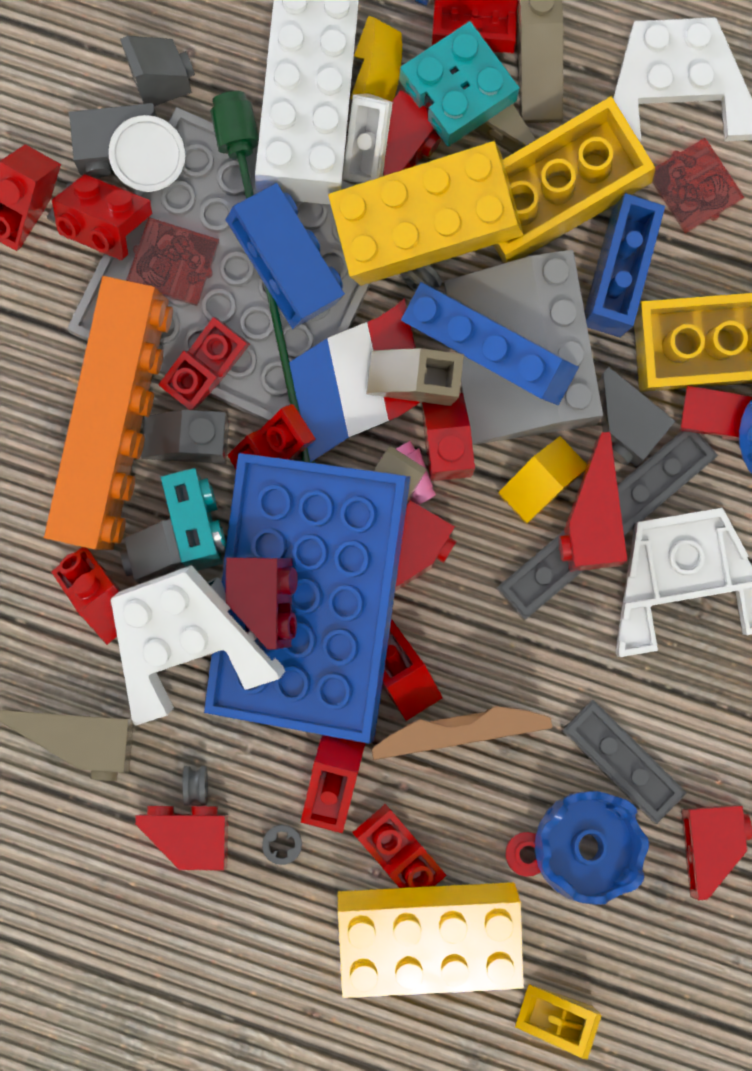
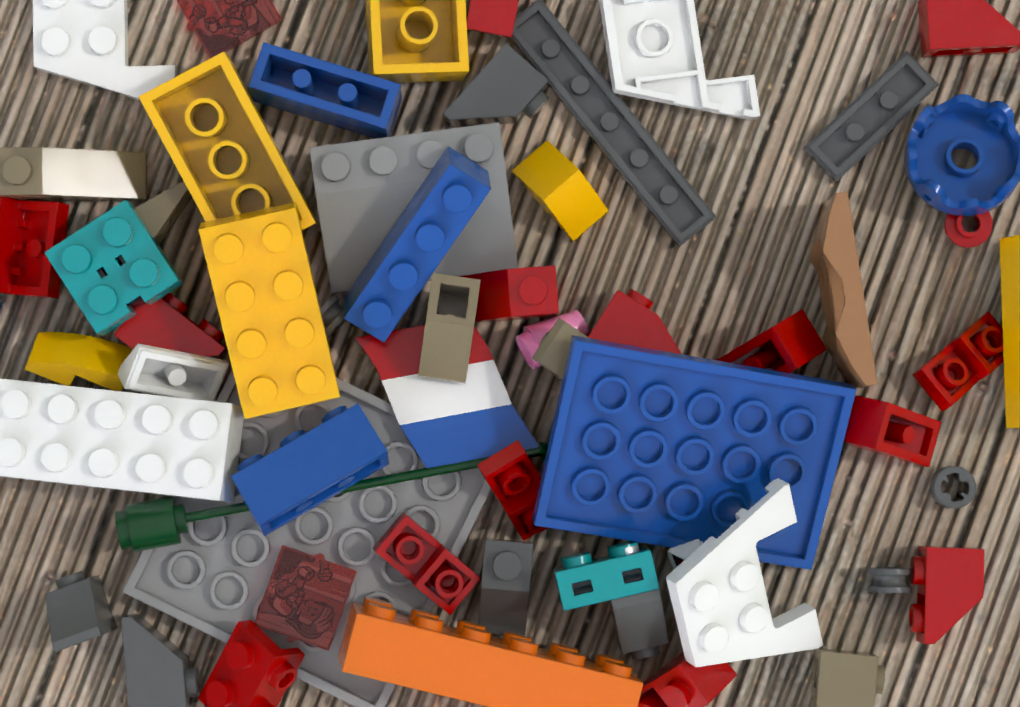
camera: 85 degrees left, 5 degrees up
(146, 153) = (181, 624): white piece -> none
(262, 597) = (697, 502): dark red slope -> none
(595, 522) = (614, 136): red slope -> none

